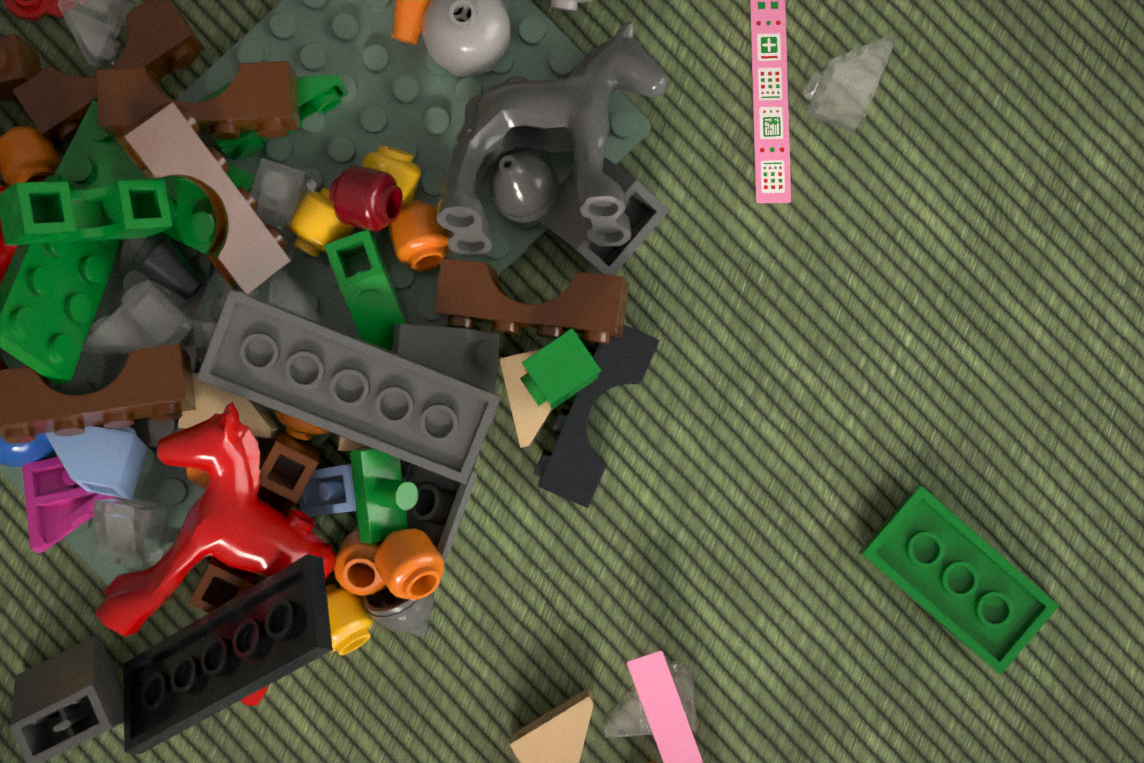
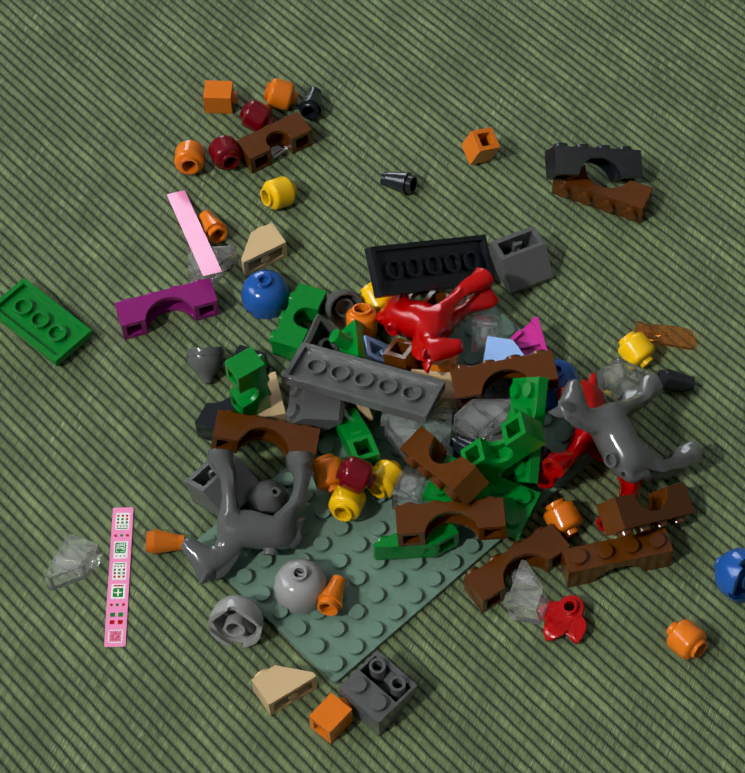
camera: 175 degrees left, 30 degrees down
(409, 564) = (334, 309): orange head -> none
(471, 610) = (302, 307): none -> green arch
(547, 637) = (265, 294): none -> blue cylinder
(649, 486) = (205, 362): none -> dark grey helmet
(700, 124) = (162, 541): none -> orange cone
(782, 589) = (194, 298): none -> magenta arch

